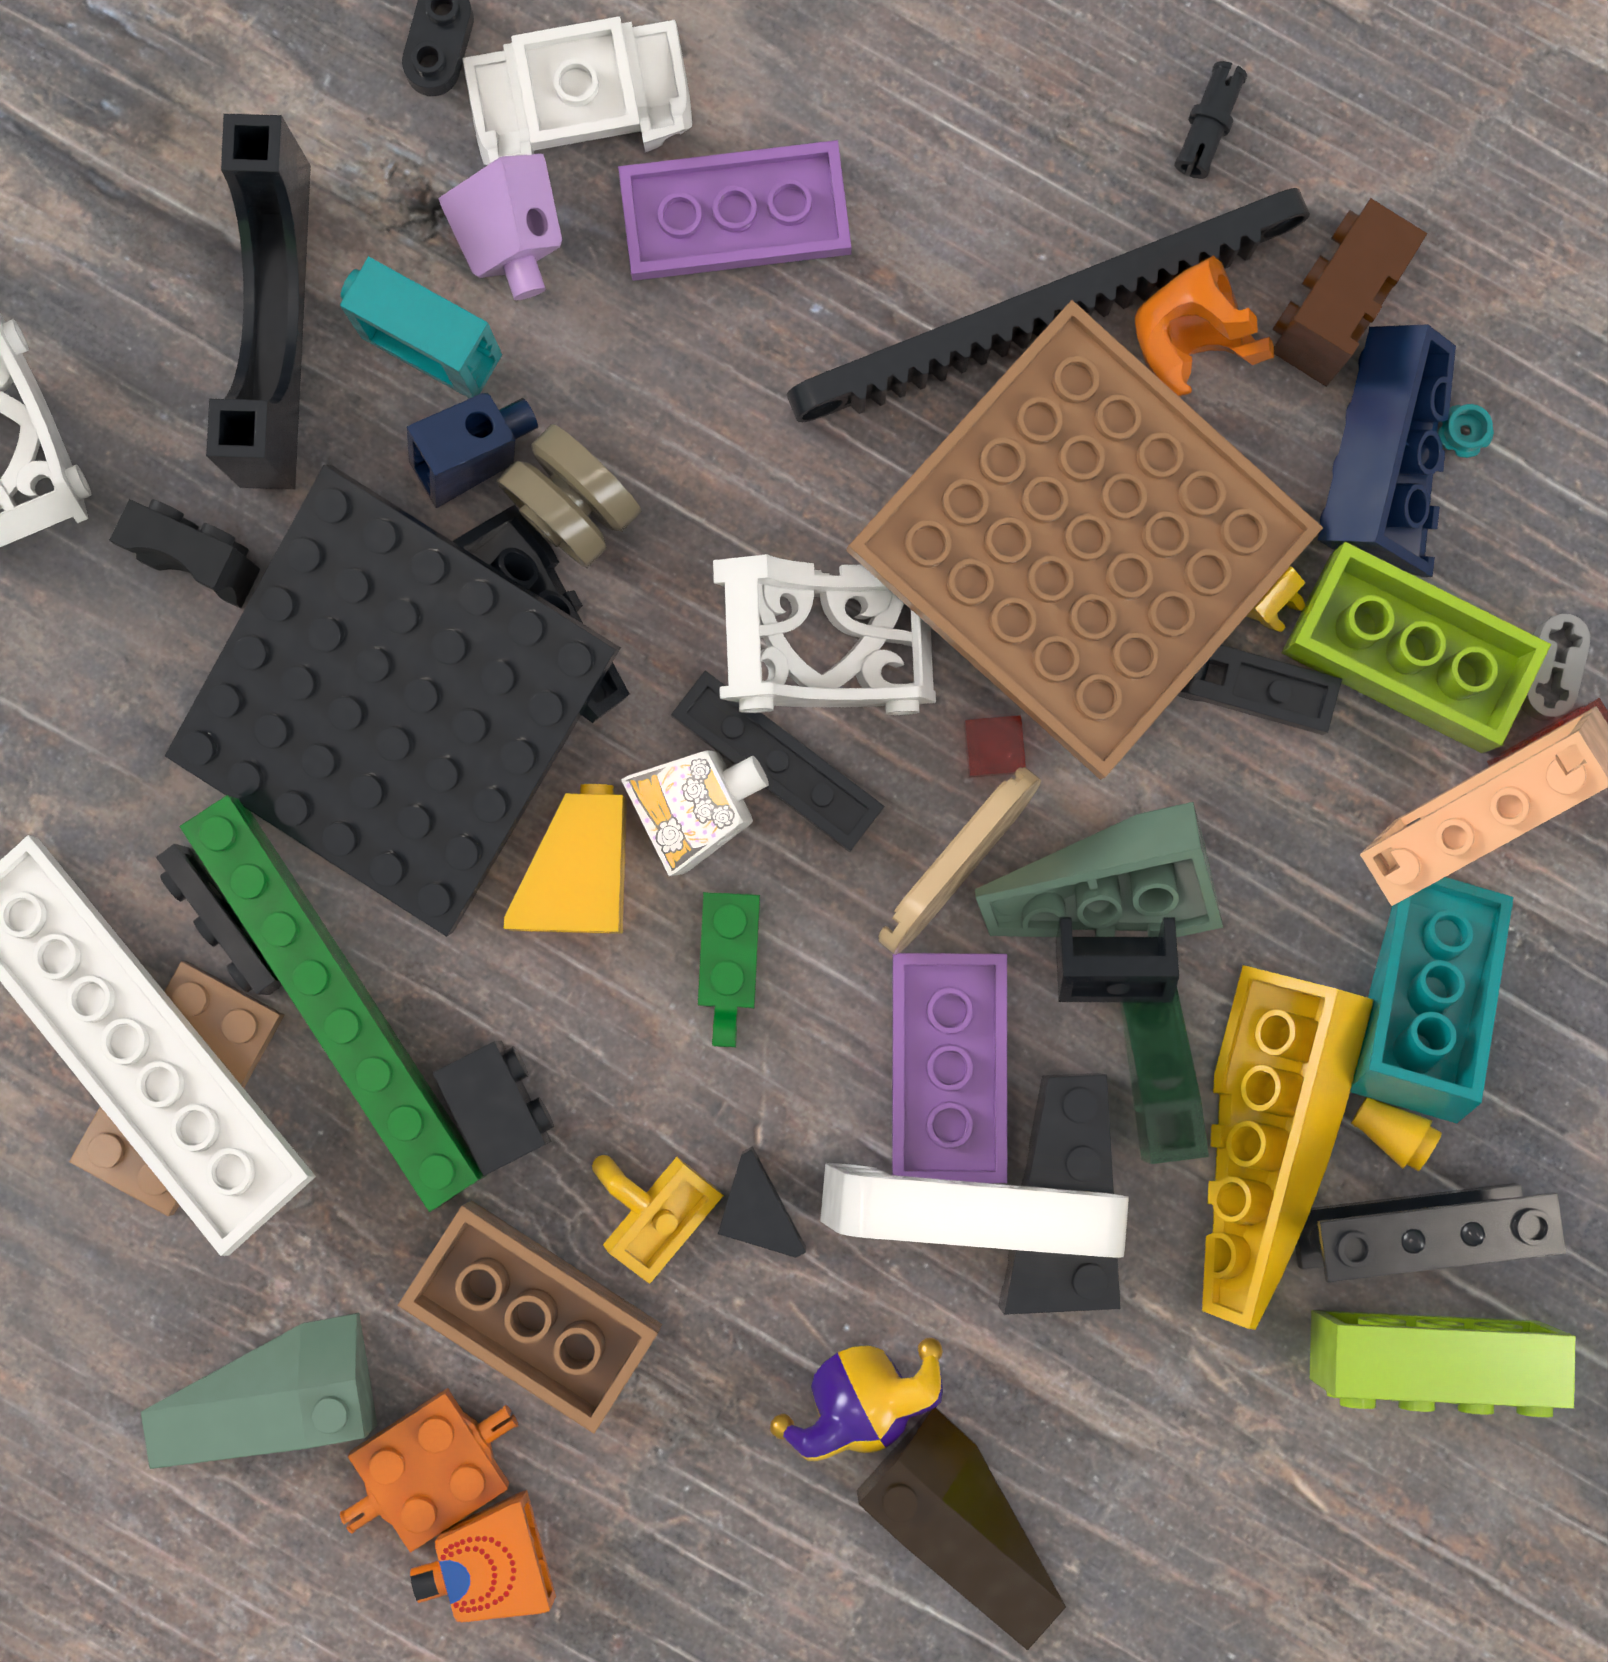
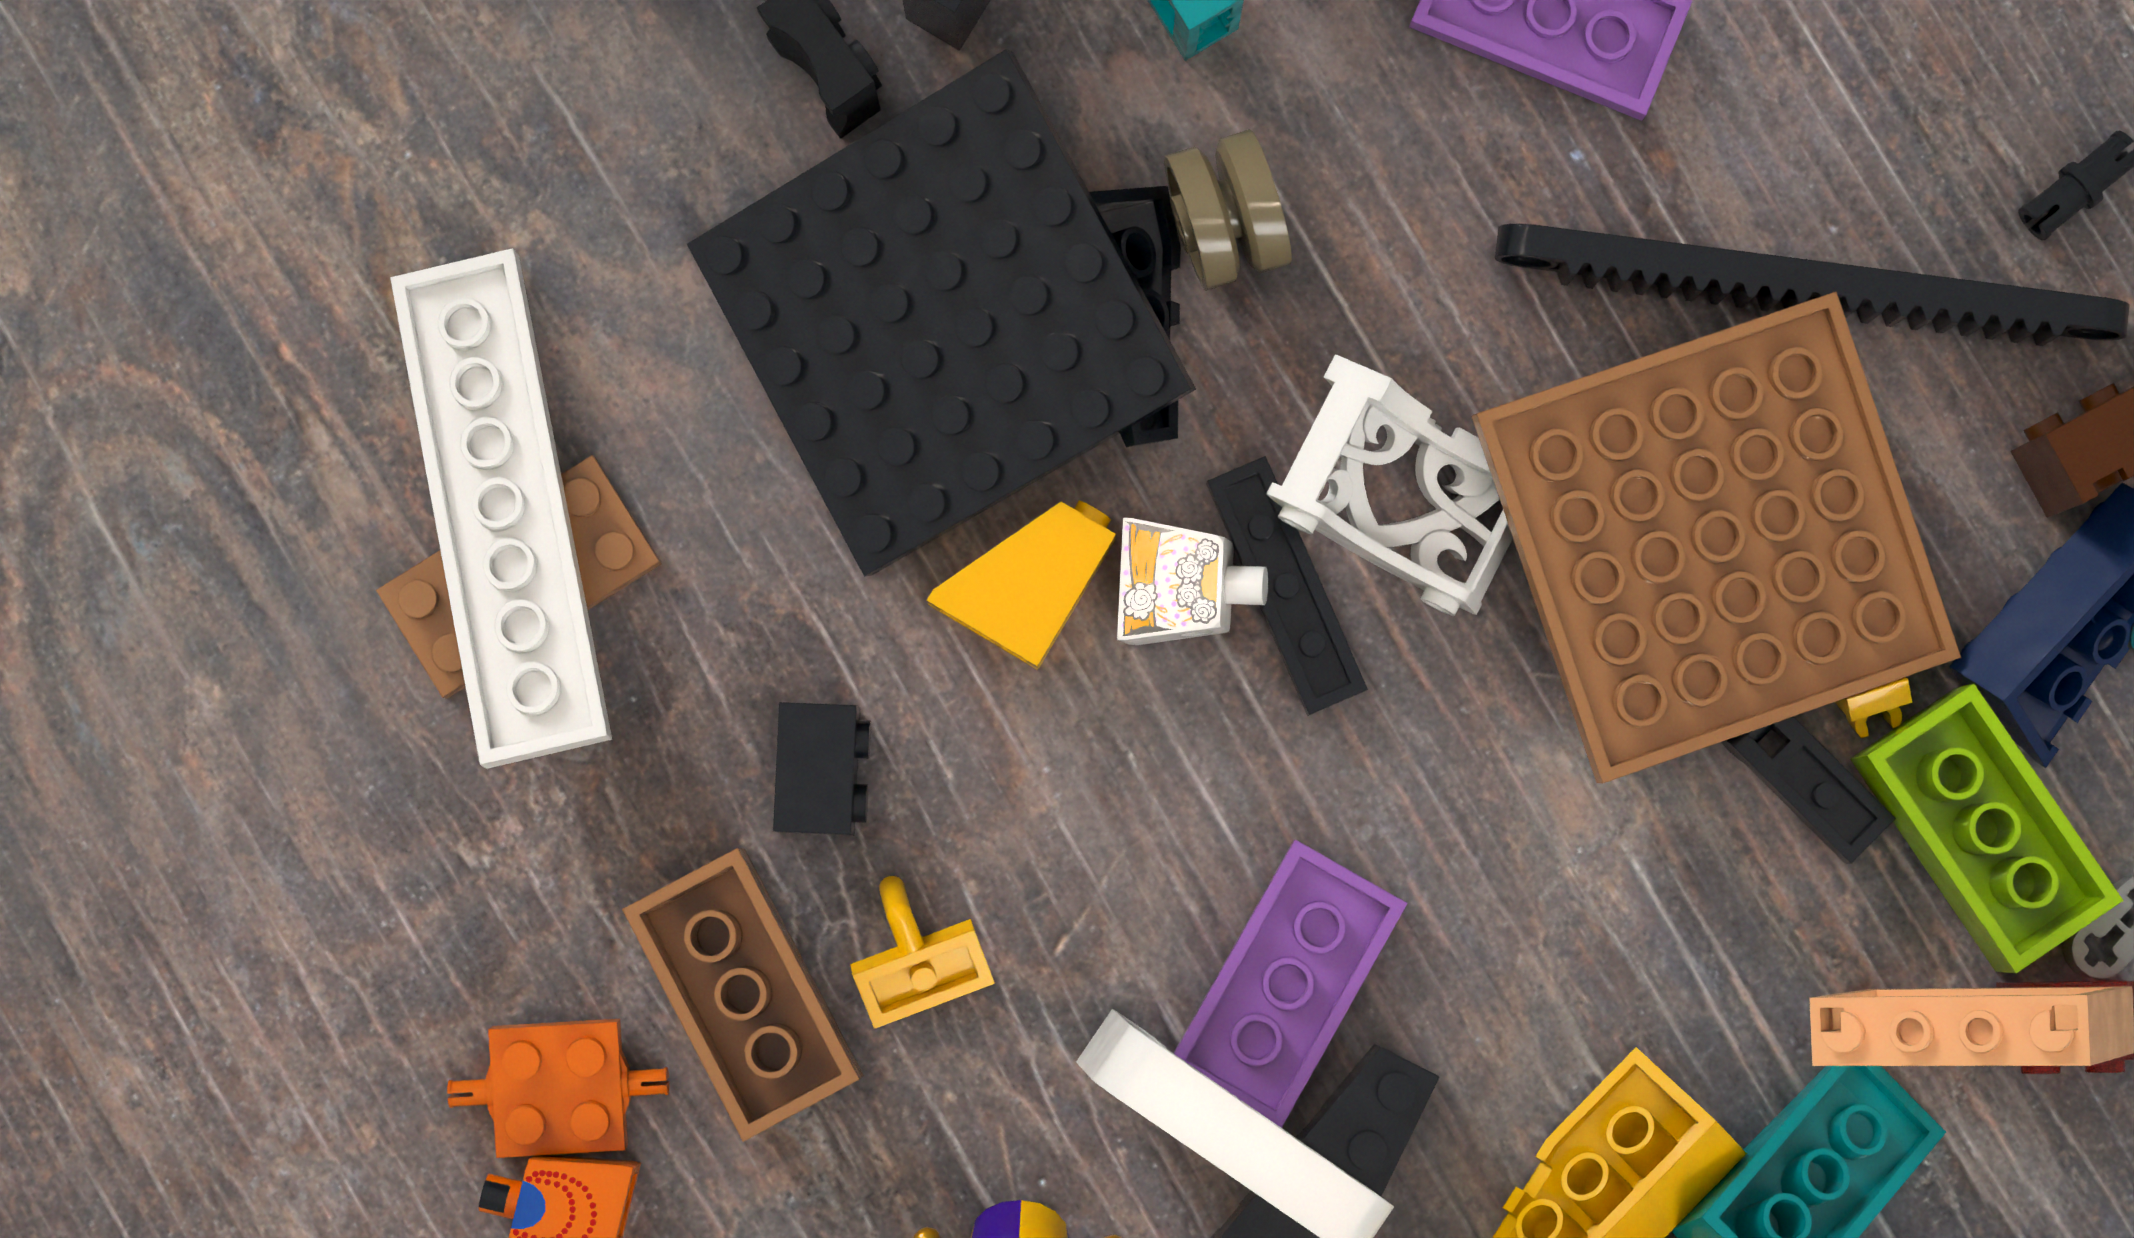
camera: 30 degrees right, 0 degrees up
(216, 920) = (651, 437): black plate -> none
(278, 1398) = (452, 933): sand green wedge -> none
(333, 1001) = (719, 578): green brick -> none
(466, 444) = (1132, 106): dark blue torso -> none
(728, 960) = (1128, 754): green plate -> none
(757, 1212) = (1018, 1017): black slope -> none
(959, 859) = (1413, 783): tan tile -> none
(994, 746) = (1510, 691): clear red plate -> none
(1112, 882) = (1569, 894): sand green wedge -> none
(1117, 966) = (1509, 977): black panel -> none
(1163, 1082) = (1494, 1109): clear green slope -> none
(1192, 317) = (1951, 373): orange piece -> none

